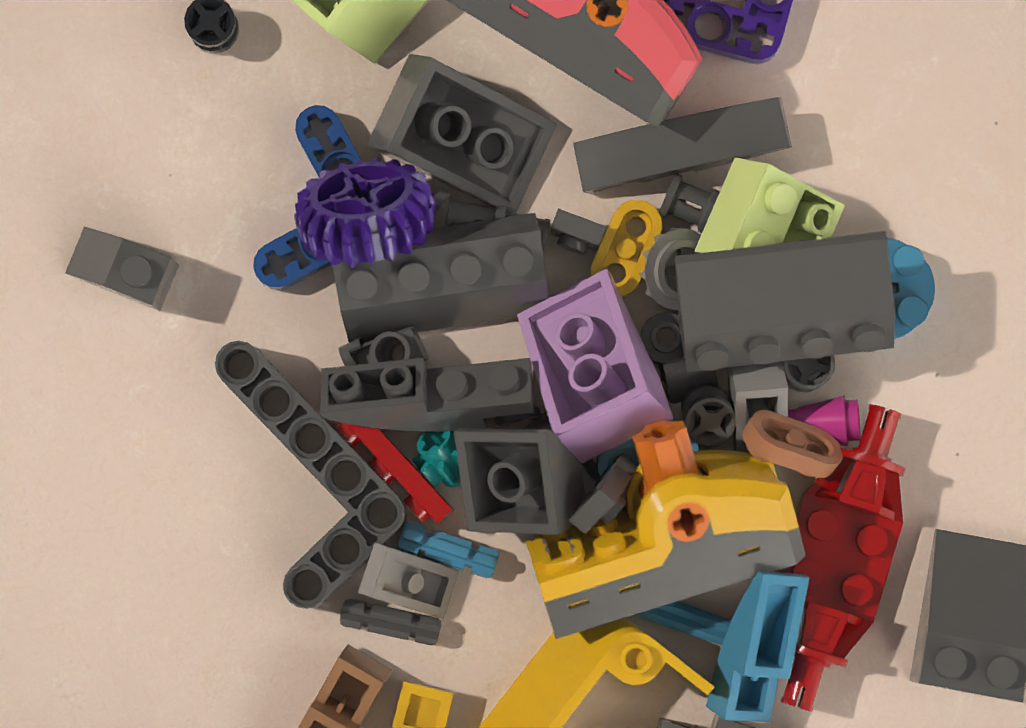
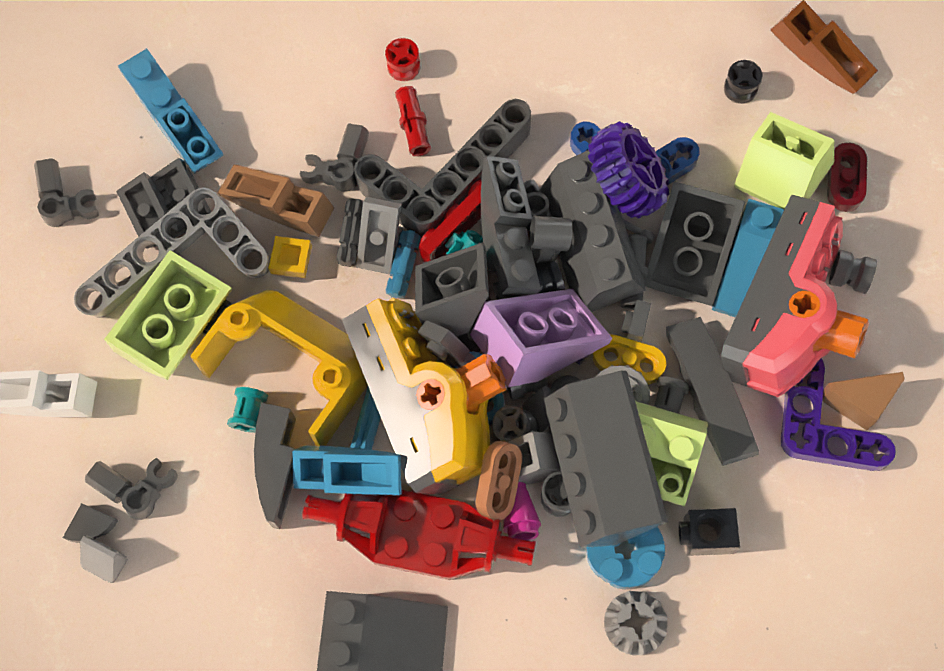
camera: 85 degrees right, 15 degrees down
(105, 519) = (402, 50): none -> red wheel
(122, 267) = (569, 50): dark grey slope -> none
(218, 517) = (412, 121): none -> red pin
(293, 628) = (341, 171): none -> dark grey bar
(450, 335) = (548, 238): none -> dark grey piece
(498, 63) = (747, 250): none -> dark azure slope
(500, 343) = (550, 278): none -> black wheel
(878, 155) = (725, 525): none -> black brick
(963, 307) = (625, 638): none -> light grey gear

